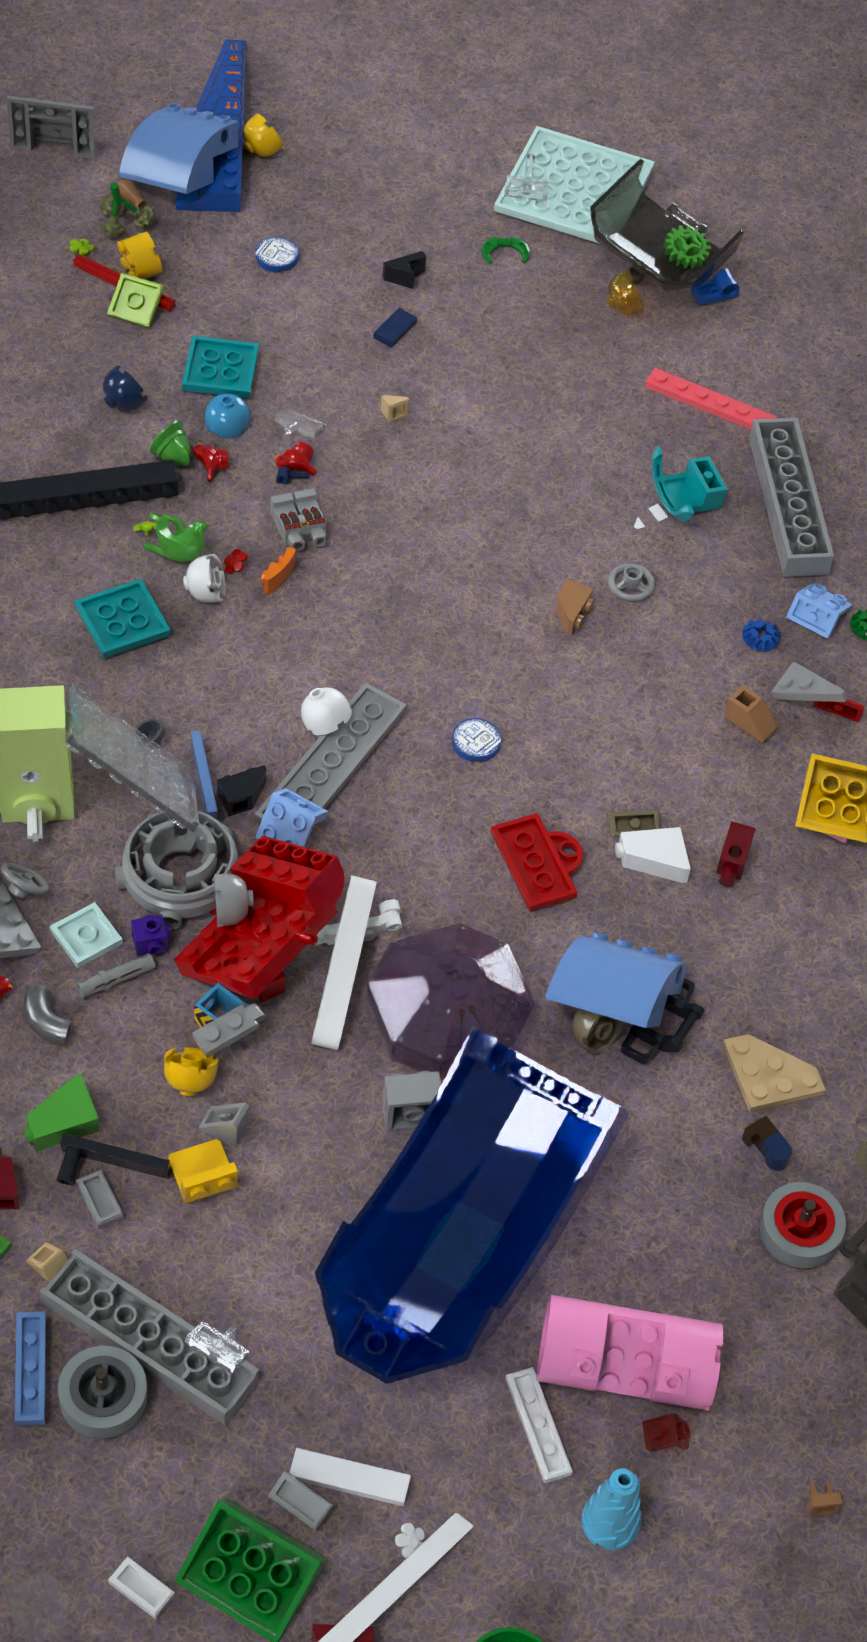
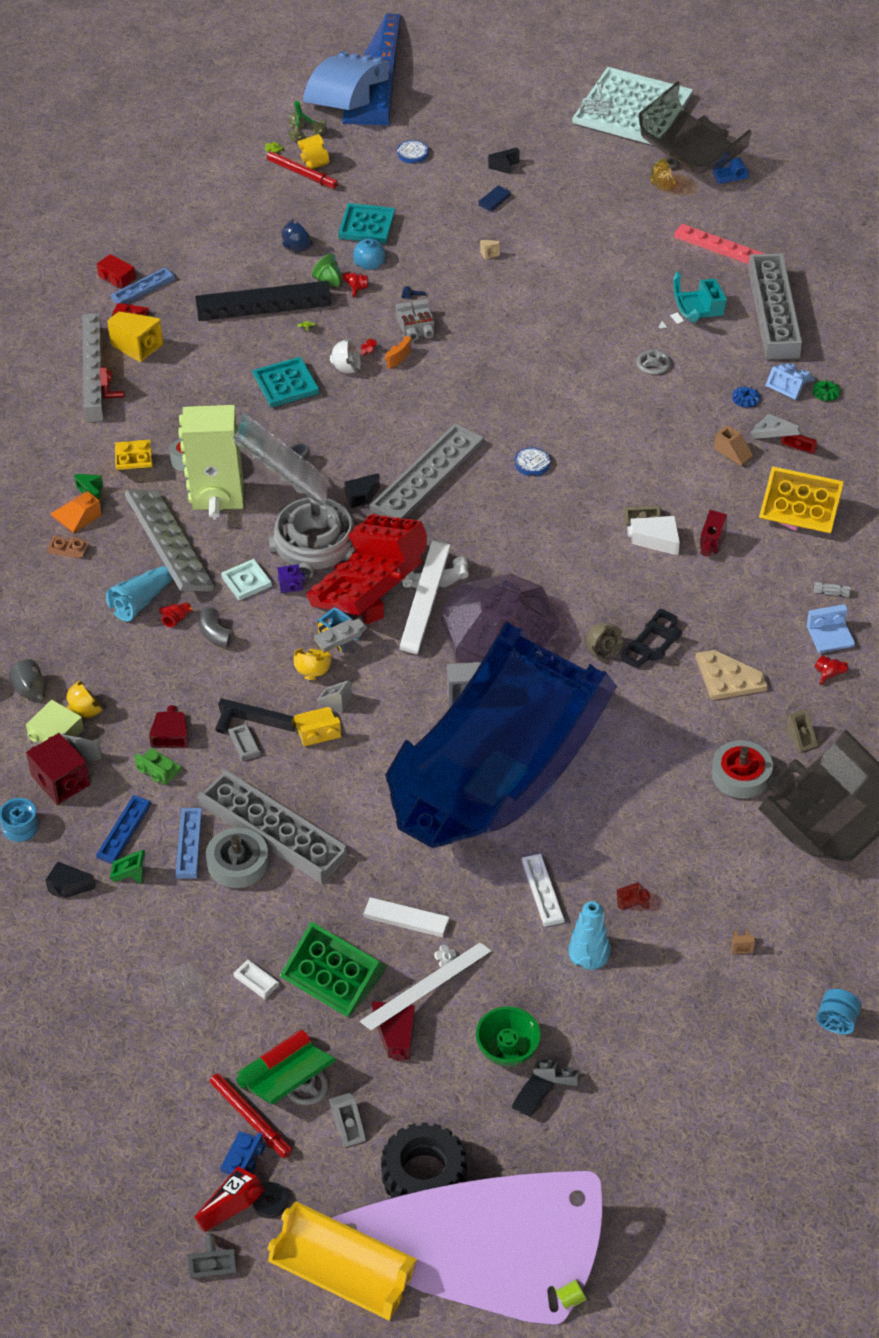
camera: 10 degrees right, 5 degrees down
(22, 880) = (204, 544): light grey piece -> none
(47, 1261) = (204, 778): tan slope -> none
(51, 121) = (256, 65): light grey slope -> none
(66, 1112) = (223, 684): bright green slope -> none
(106, 979) = (257, 607): light grey pin -> none
(131, 193) = (309, 110): medium nougat cone -> none
(135, 300) = (309, 180): lime tile -> none
(183, 546) = (329, 335): bright green piece -> none
(203, 774) = (335, 477): medium blue tile -> none
(217, 1346) = (317, 829): clear plate -> none
(231, 899) = (347, 552): light grey cylinder -> none
(260, 137) = (405, 75): yellow cylinder -> none
(290, 818) = (395, 504): light blue bracket -> none
(295, 421) = (415, 257): clear plate -> none
(297, 458) = (417, 281): red animal -> none
(300, 1500) = (370, 929): light grey tile -> none
(325, 710) = (423, 439): white cylinder -> none
(516, 243) = (579, 143): green piece -> none
(538, 860) = (571, 537): red plate -> none
(572, 604) = (609, 374): medium nougat slope -> none
(617, 979) = (618, 608): medium blue slope -> none
(630, 1352) = (607, 841): bright pink cylinder -> none
(687, 247) = (710, 143): bright green gear -> none
(769, 1143) = (722, 718): leg -> none

